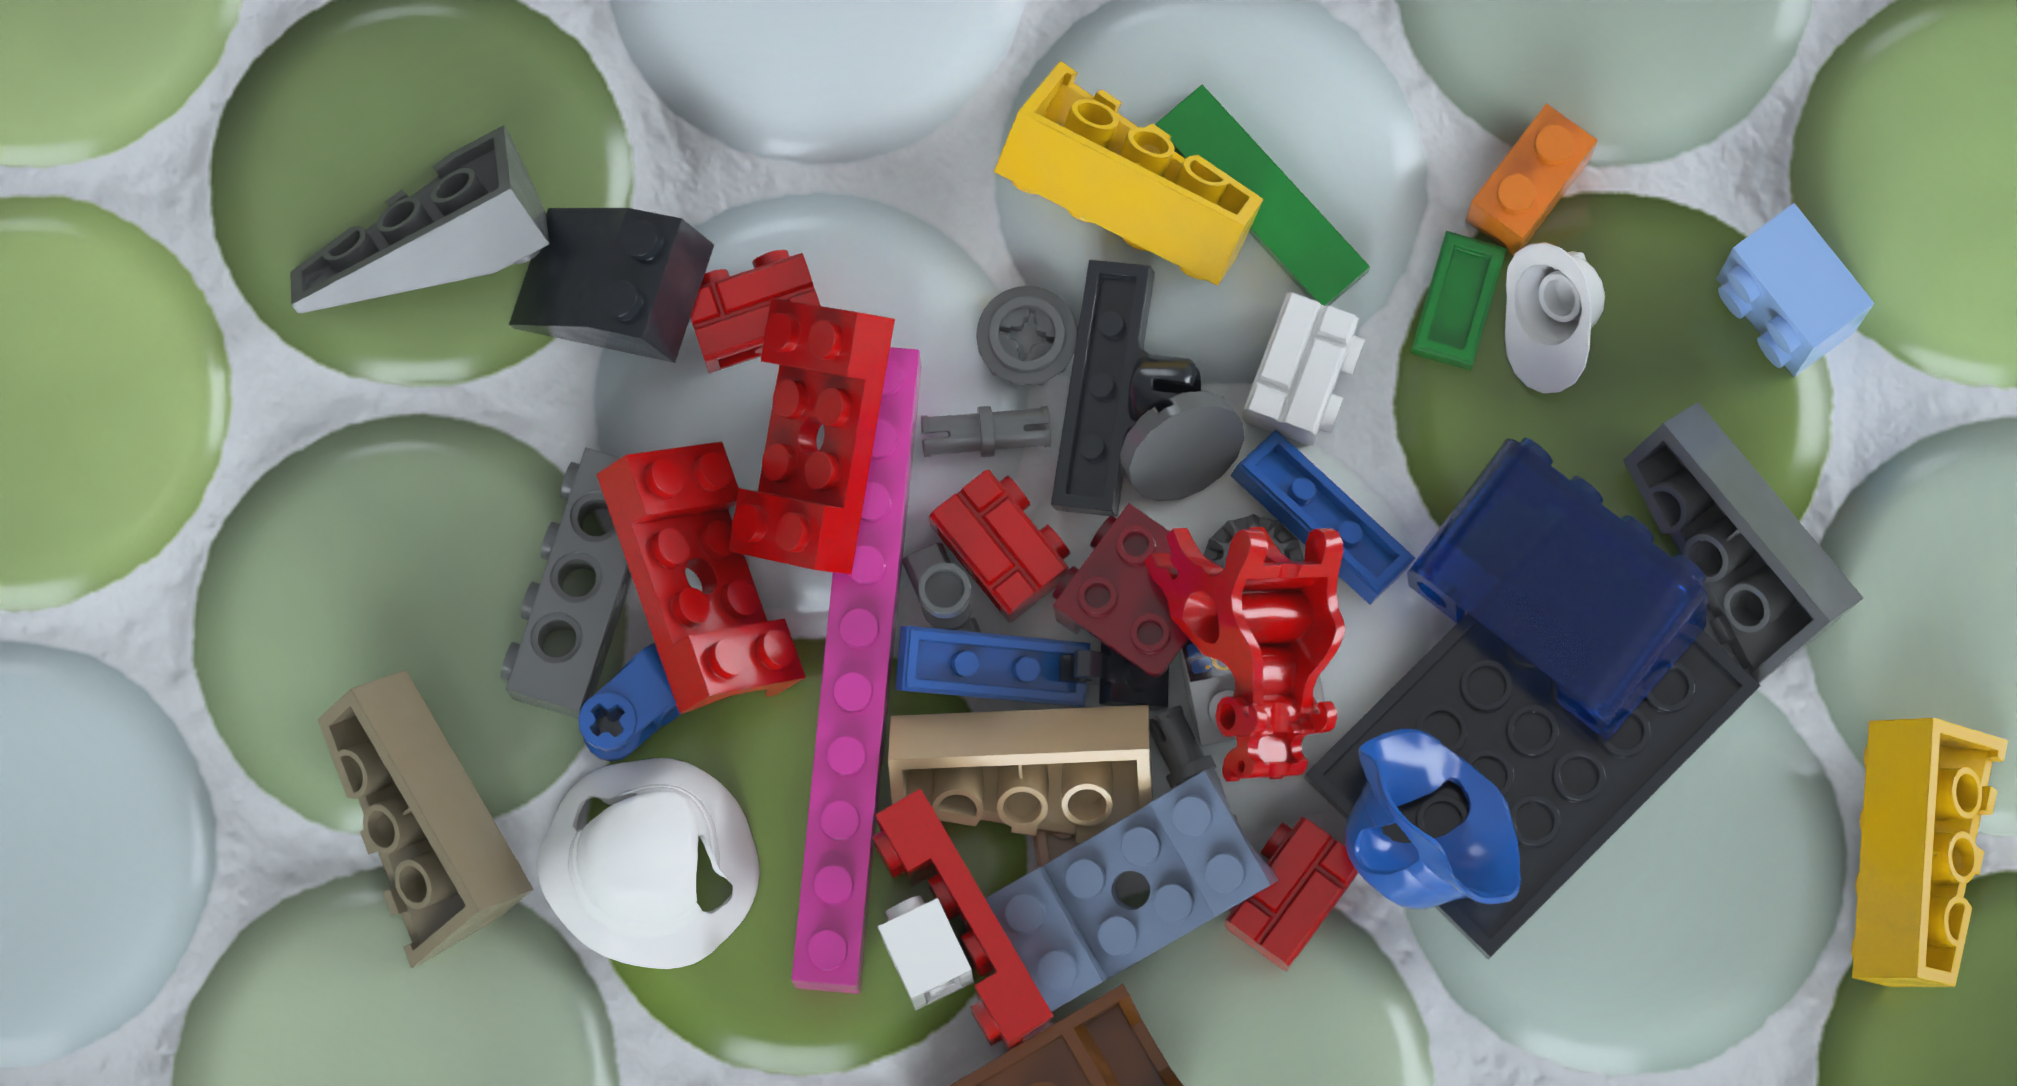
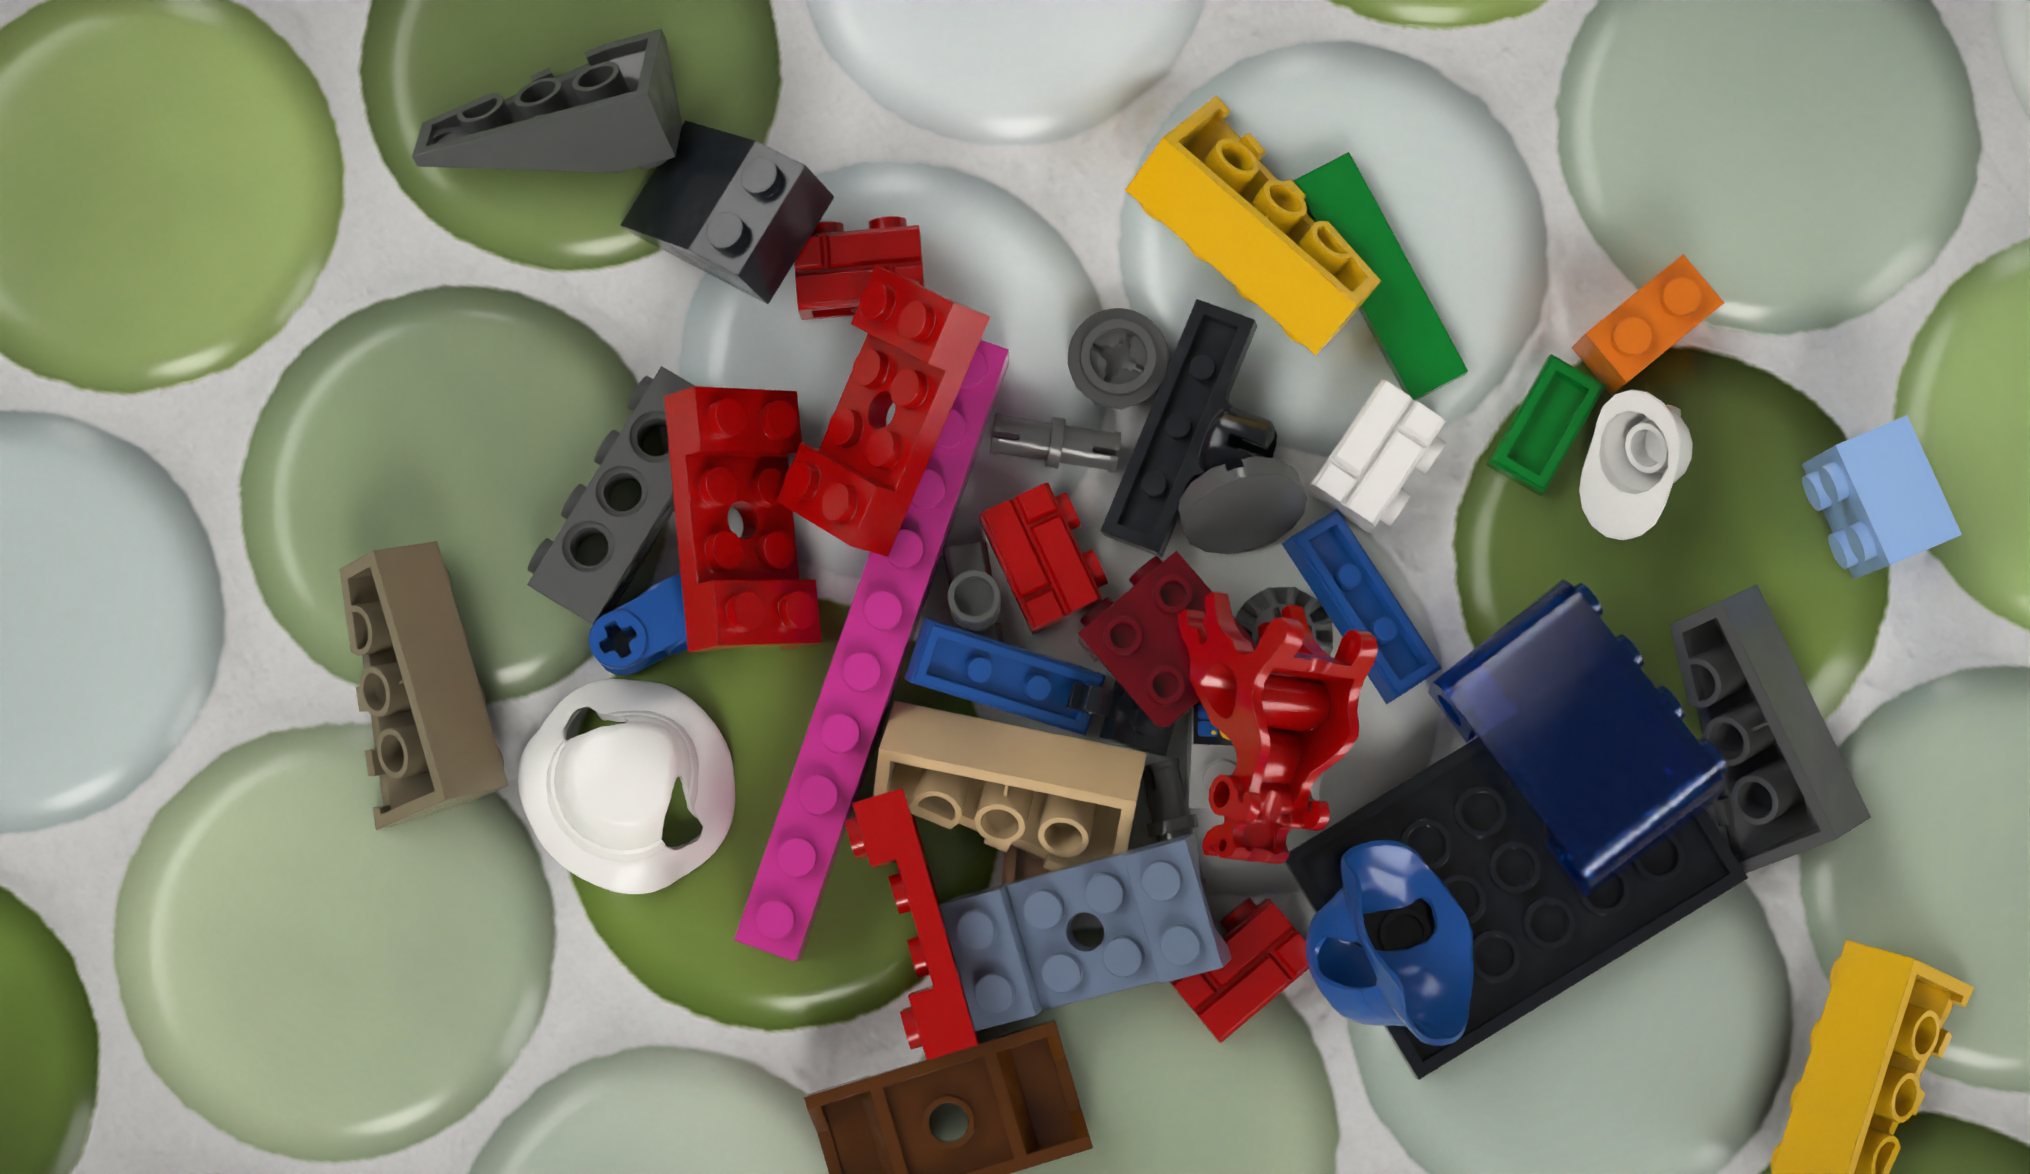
camera: 10 degrees right, 5 degrees up
(925, 951) = (869, 942): white brick -> none

